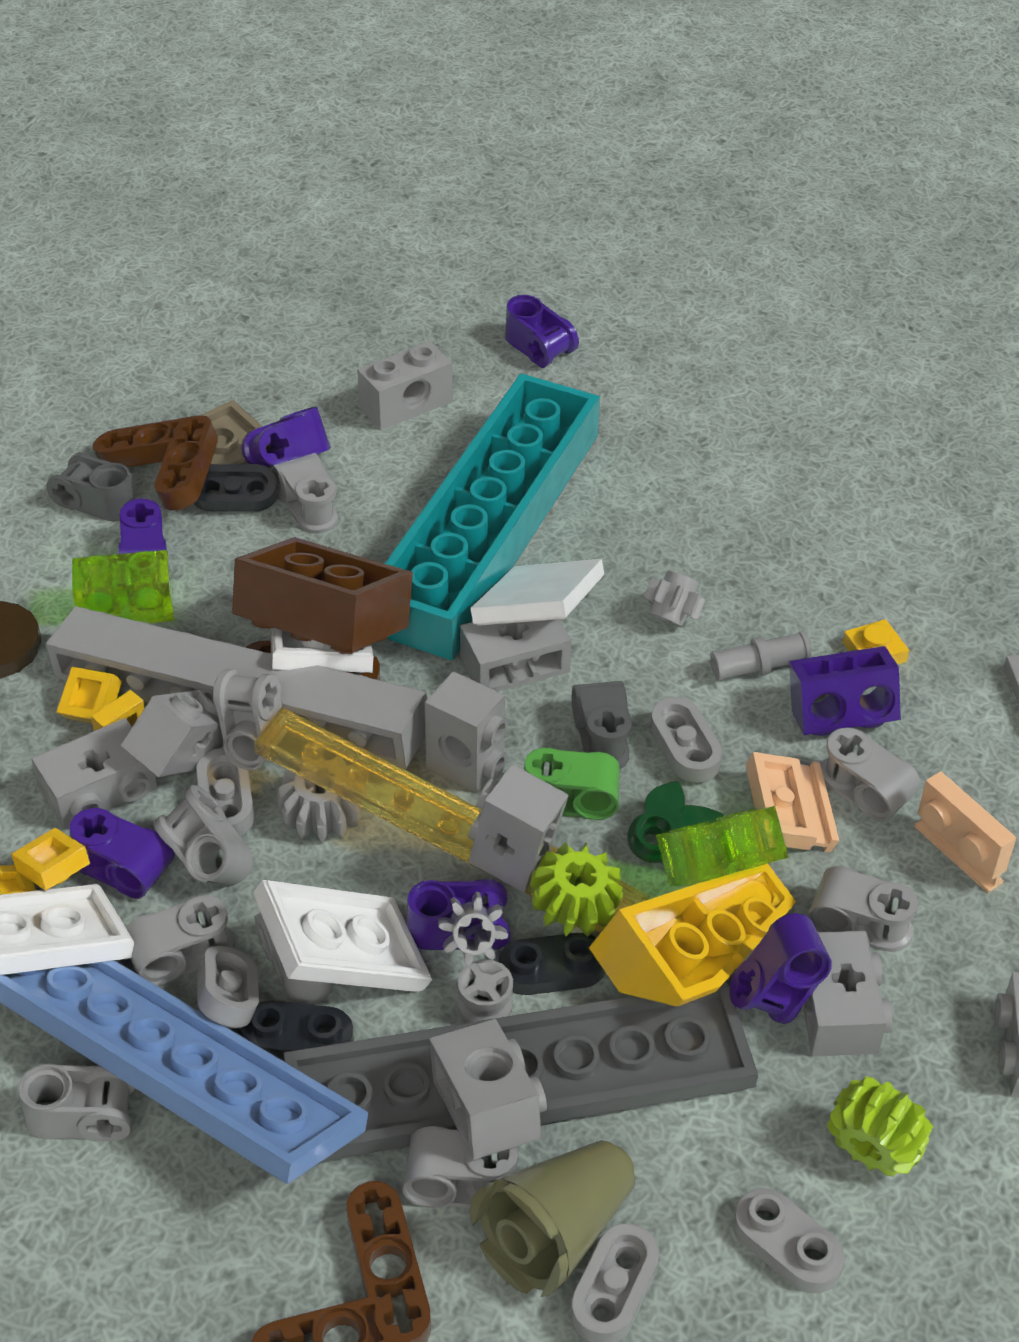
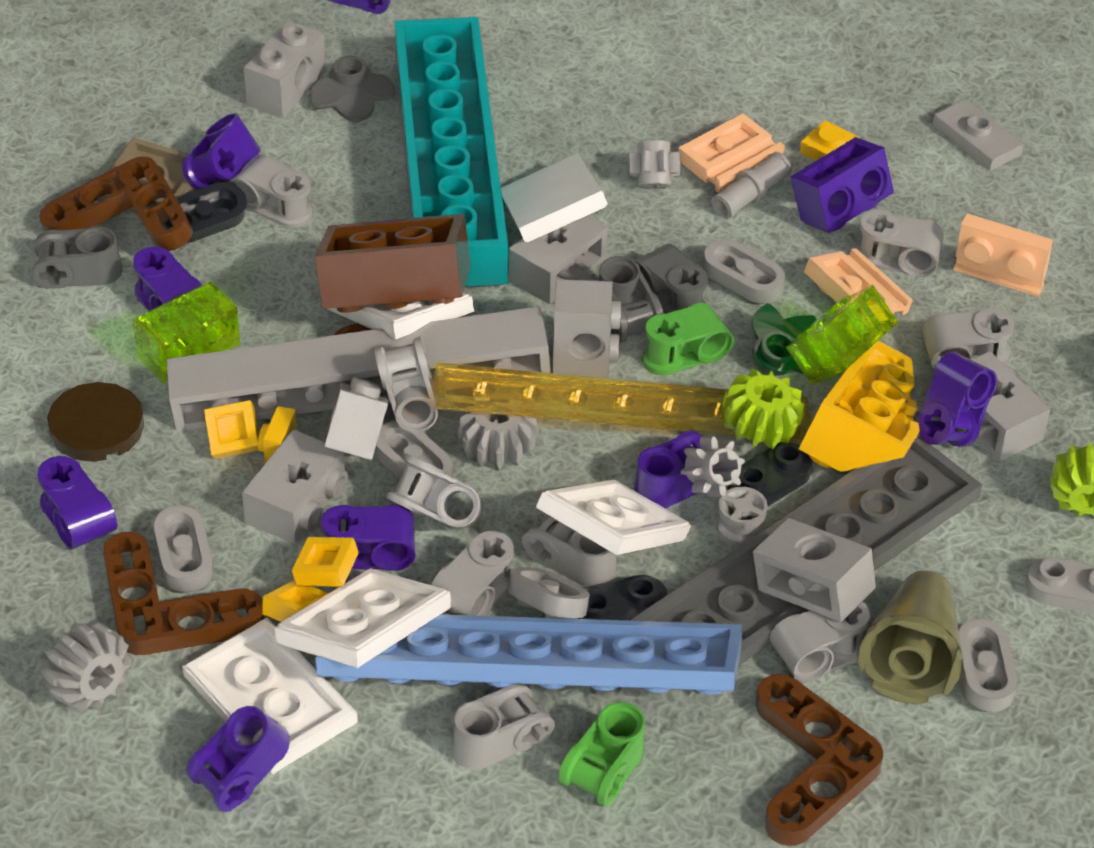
camera: 30 degrees left, 0 degrees up
(148, 1187) = (602, 759): none -> bright green piece
(453, 424) = (352, 89): none -> dark grey plate
(515, 826) = (699, 376): light grey brick -> none
(543, 715) = (633, 291): none -> dark grey piece
(763, 612) = (728, 151): none -> light nougat plate

